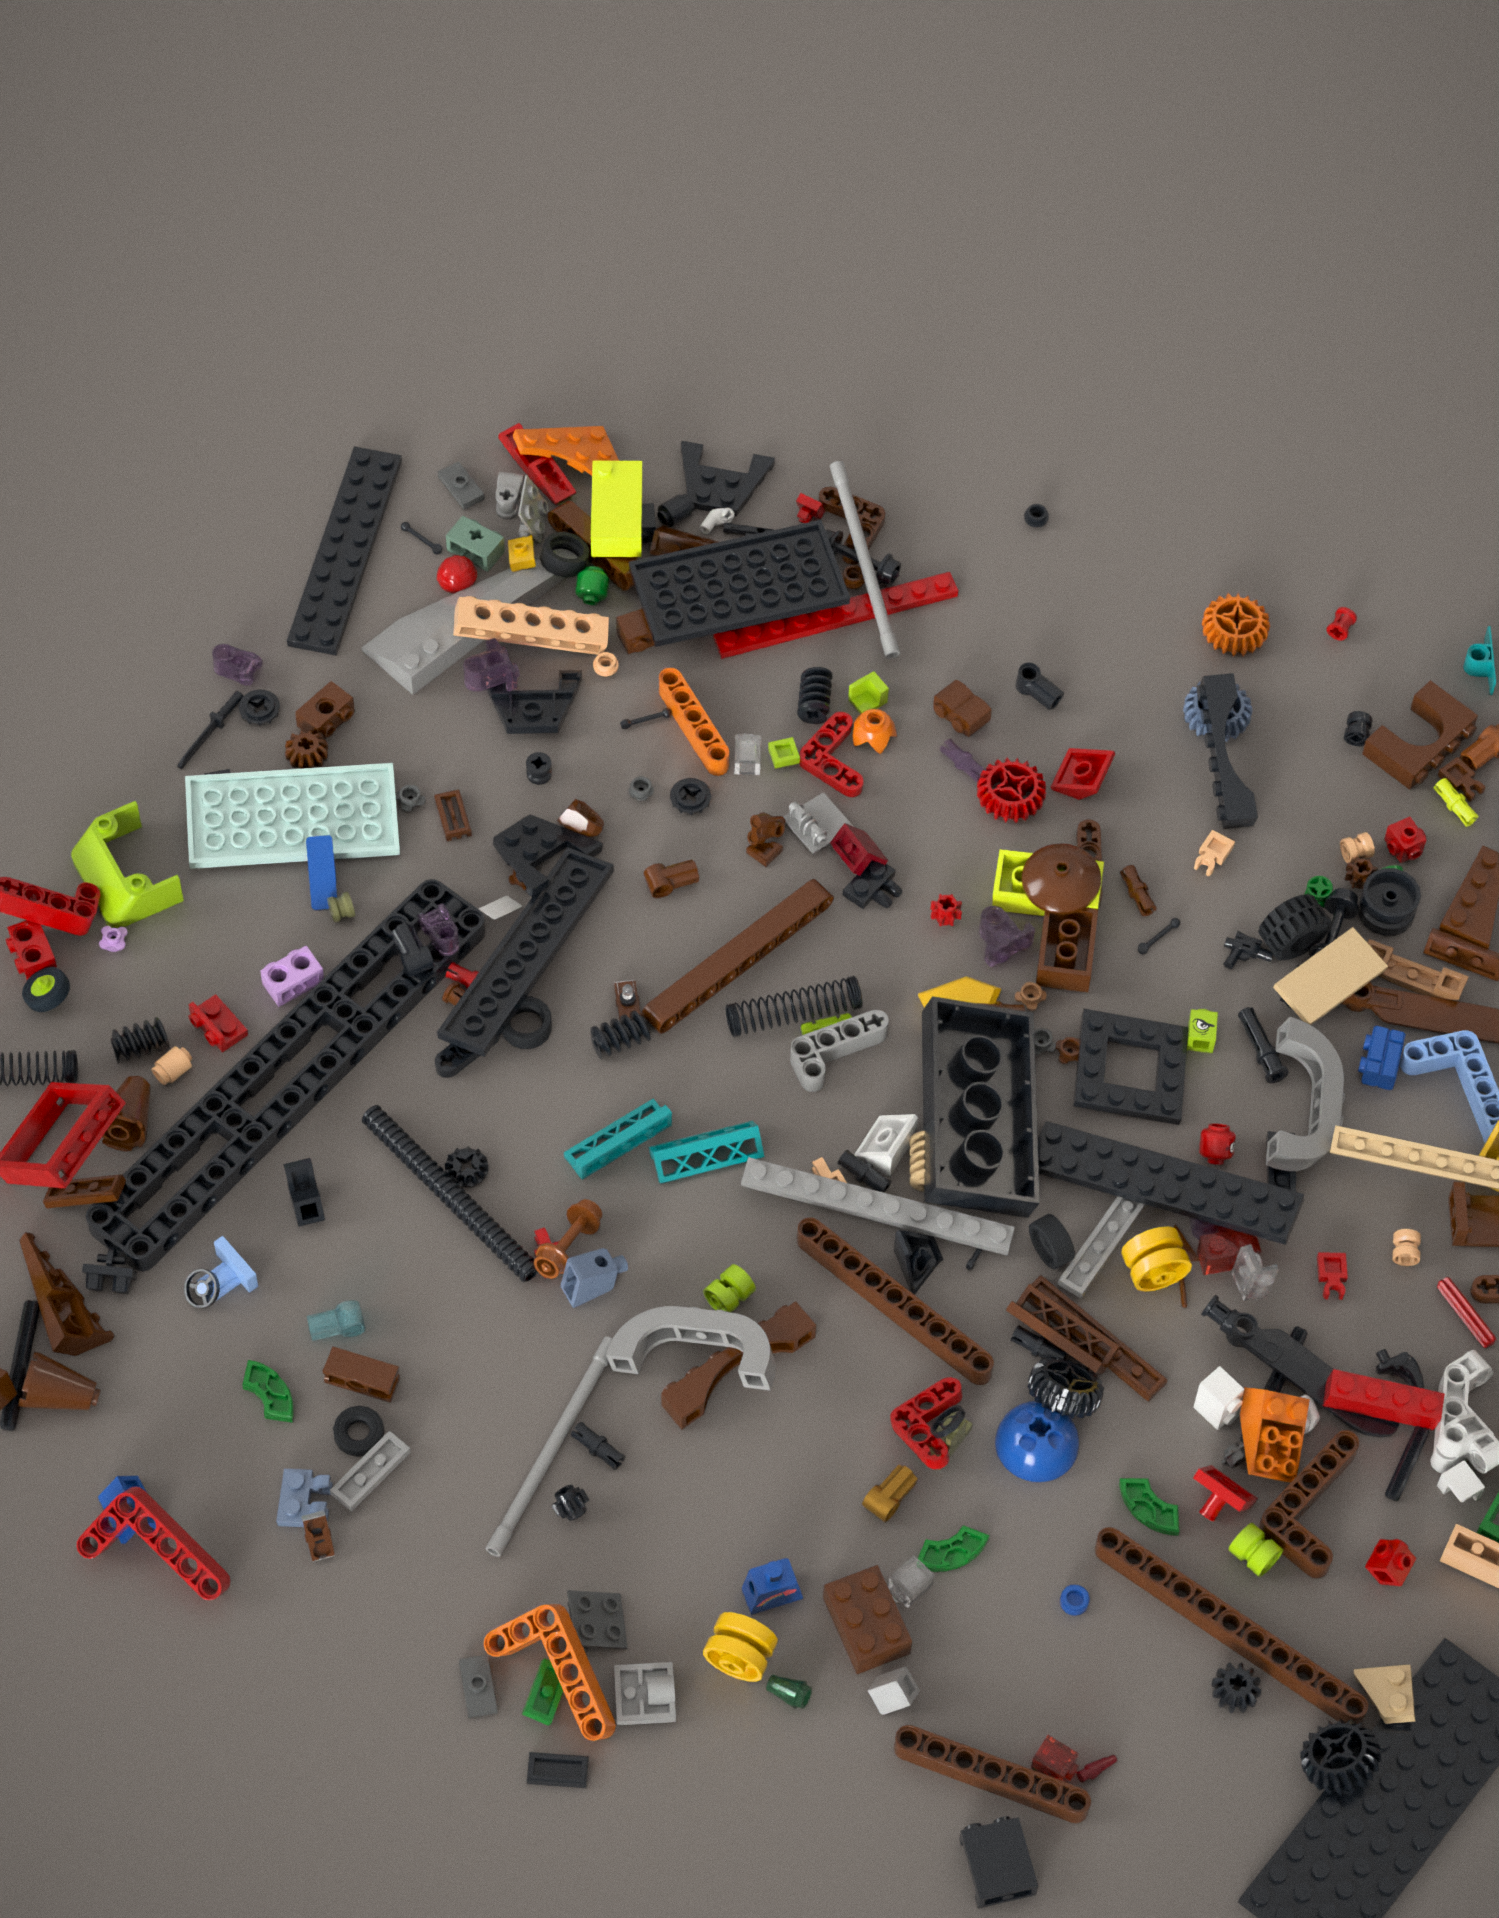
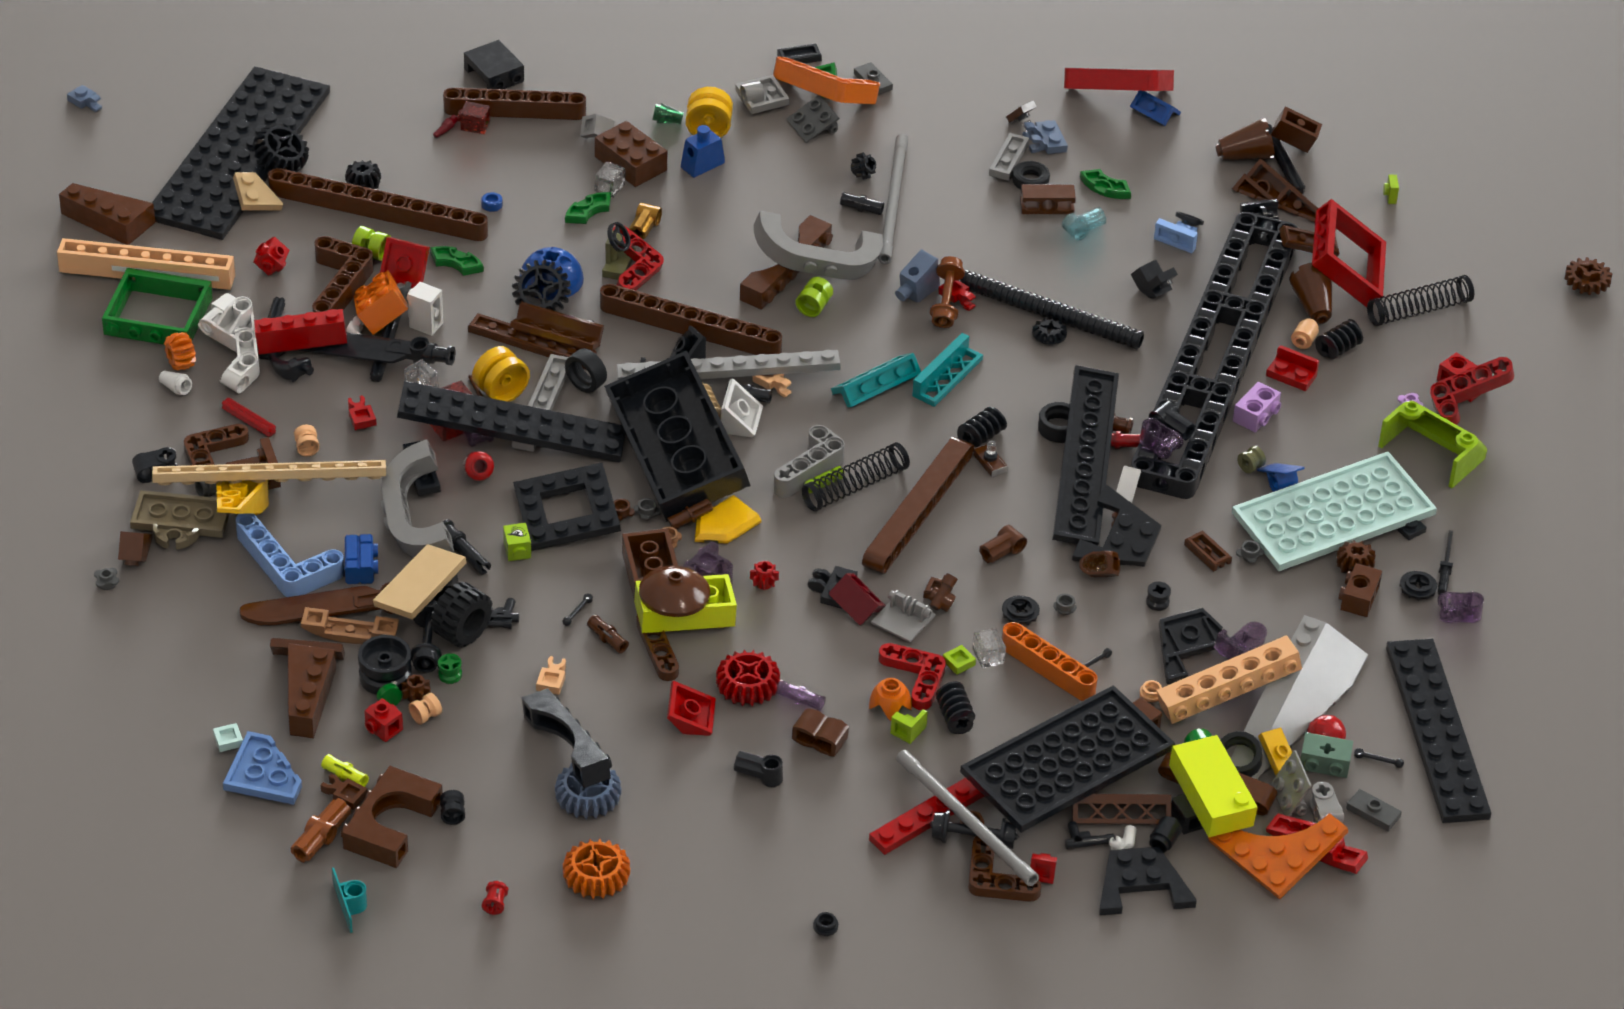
camera: 160 degrees right, 15 degrees down
(46, 989) = (1431, 352): black wheel -> none

